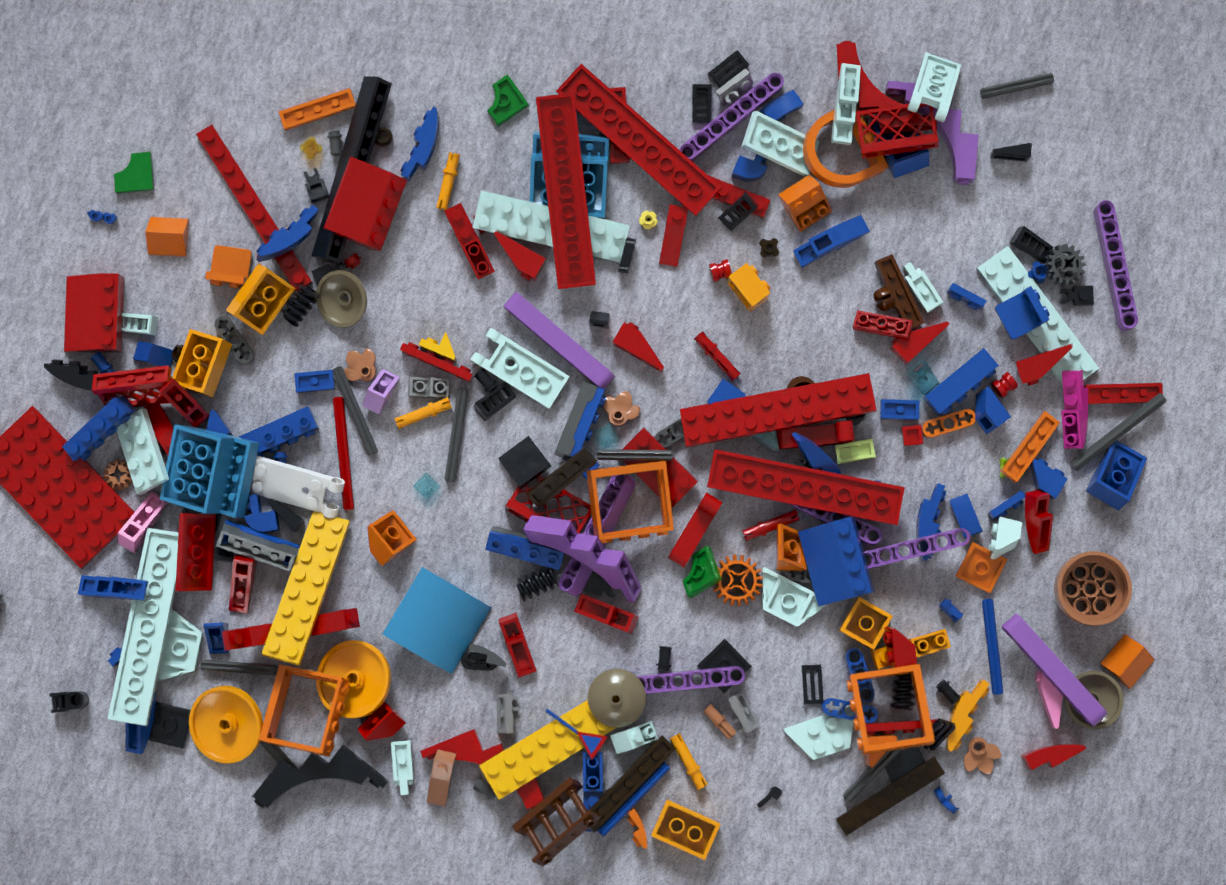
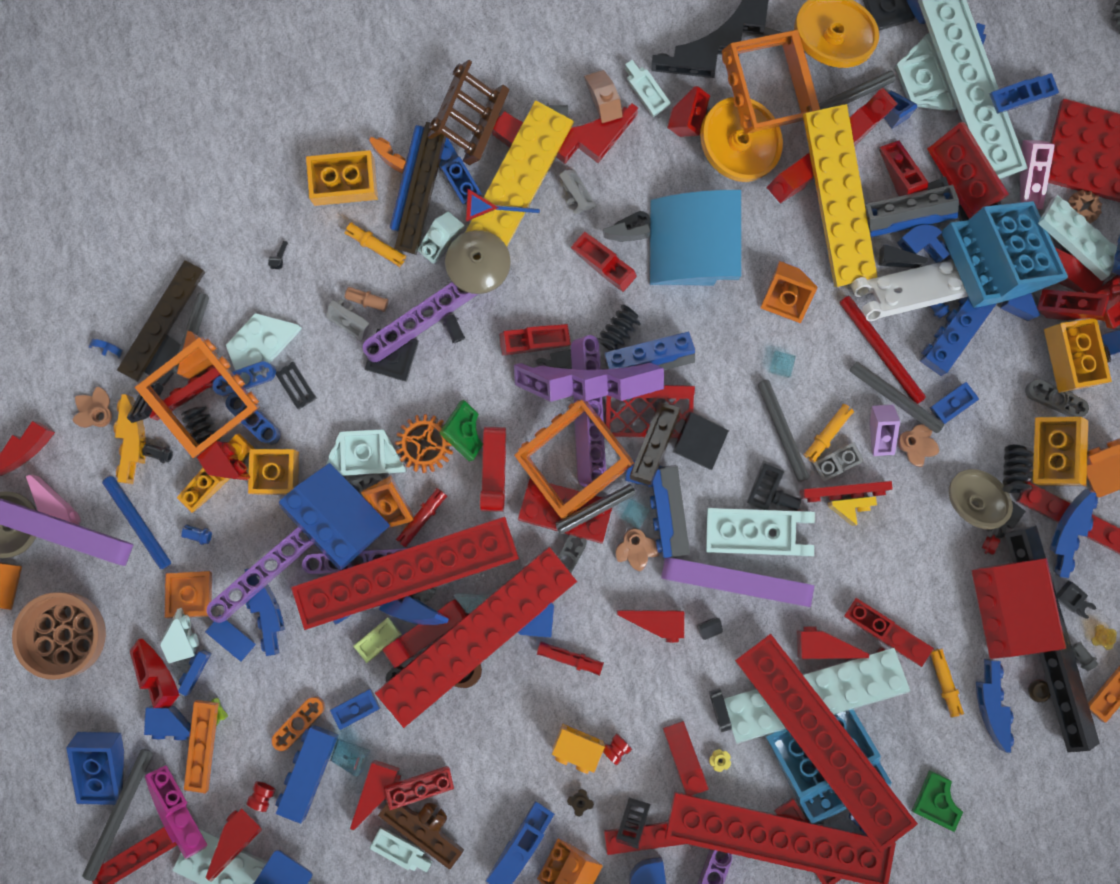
camera: 150 degrees right, 0 degrees up
(912, 435) = (328, 689): red plate -> none
(972, 300) = (357, 867): blue plate -> none
(989, 411) = (261, 760): blue slope -> none

